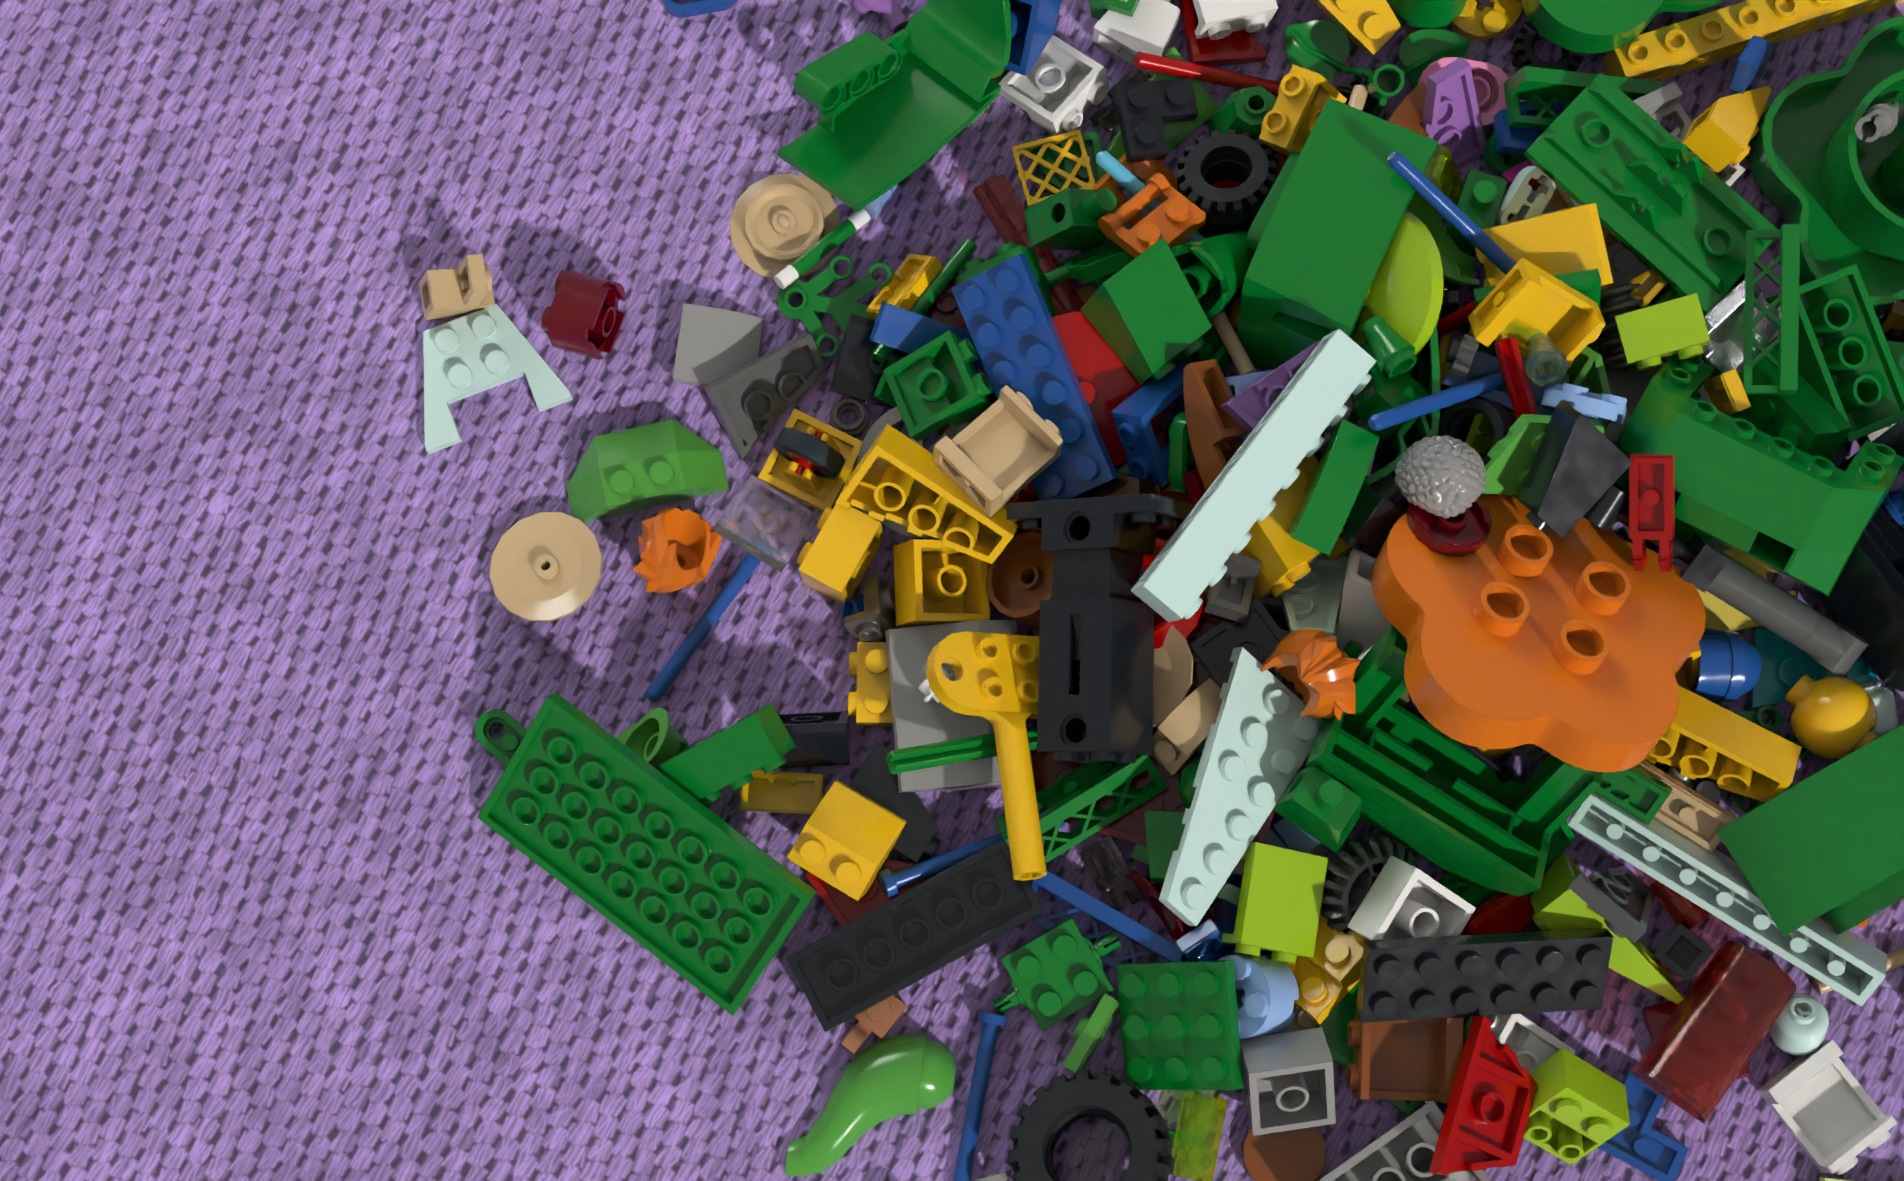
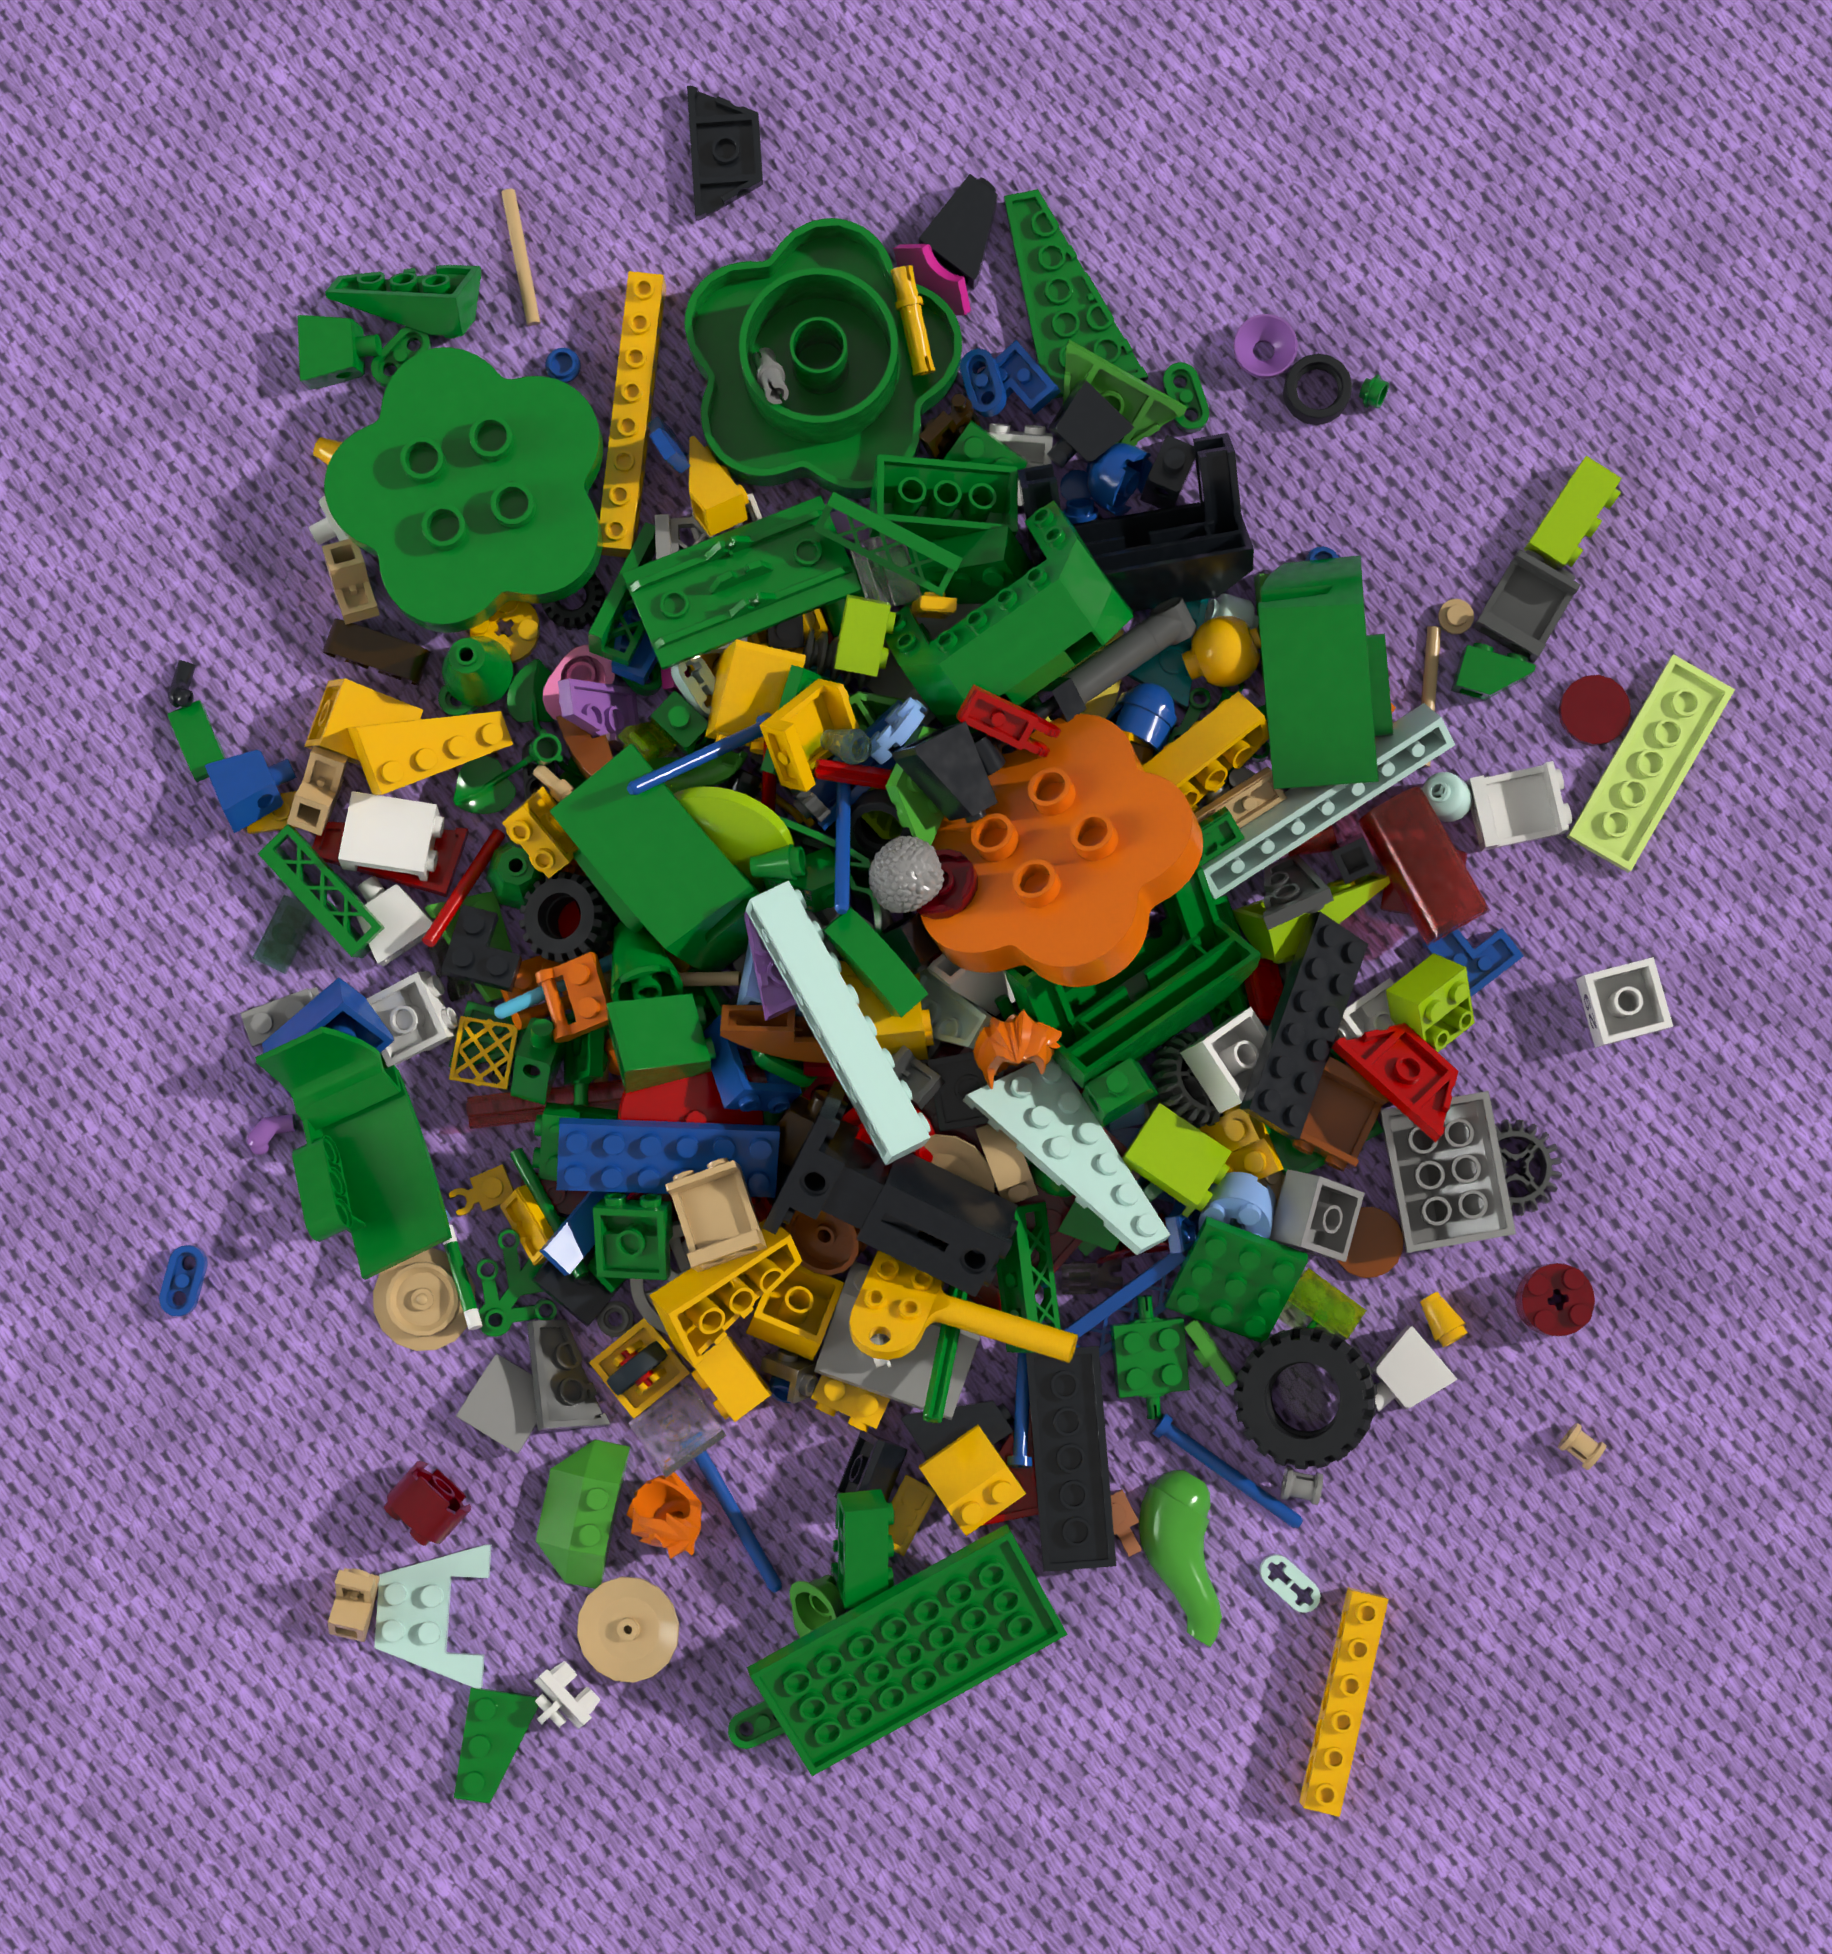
camera: 70 degrees left, 5 degrees up
(381, 484) = (491, 1737): none -> green wing
(461, 519) = (575, 1709): none -> white hips
(918, 236) = (488, 1189): none -> yellow plate

